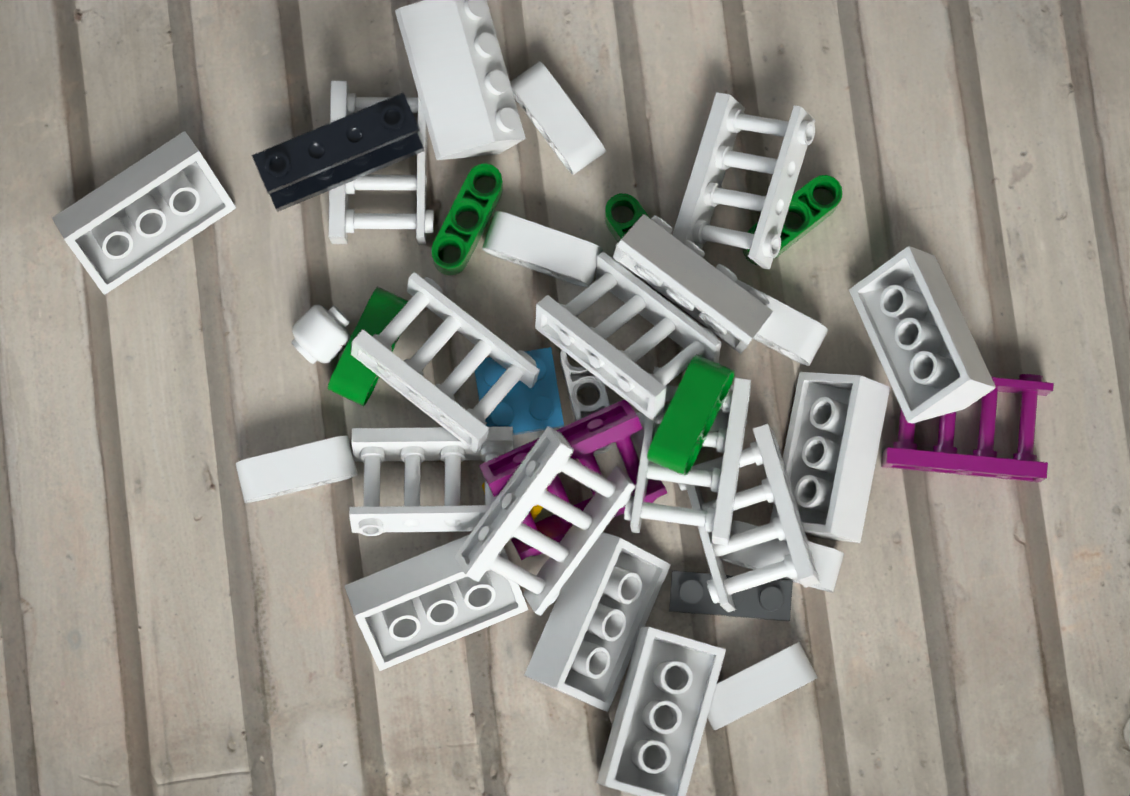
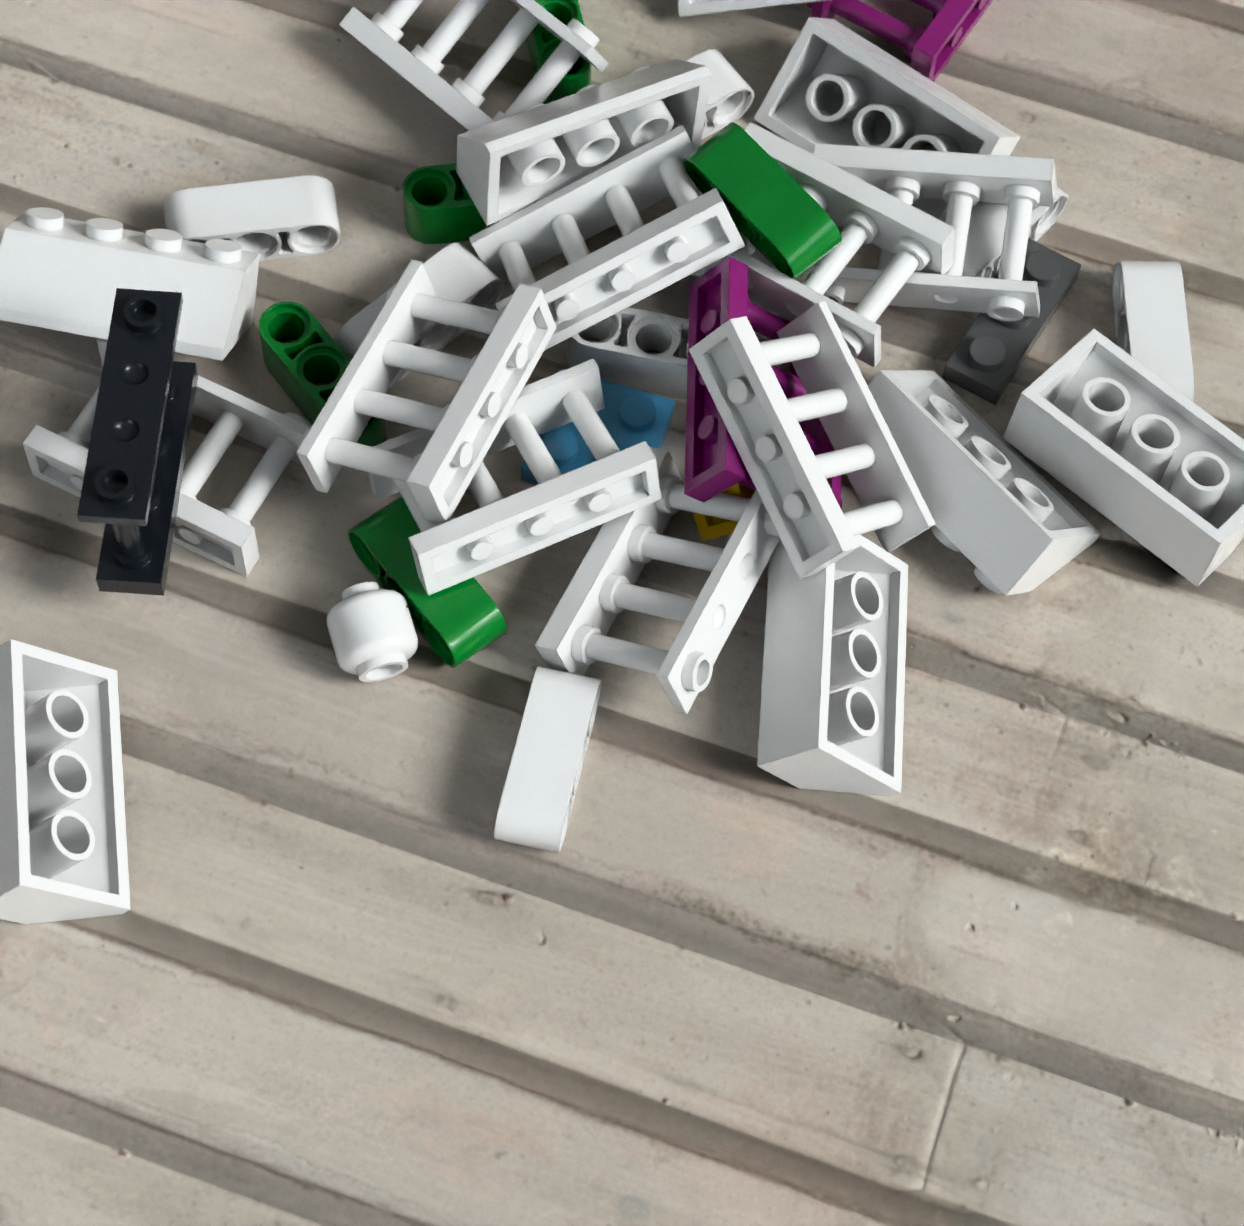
camera: 65 degrees left, 20 degrees down
(477, 324) = (462, 427): none -> white fence

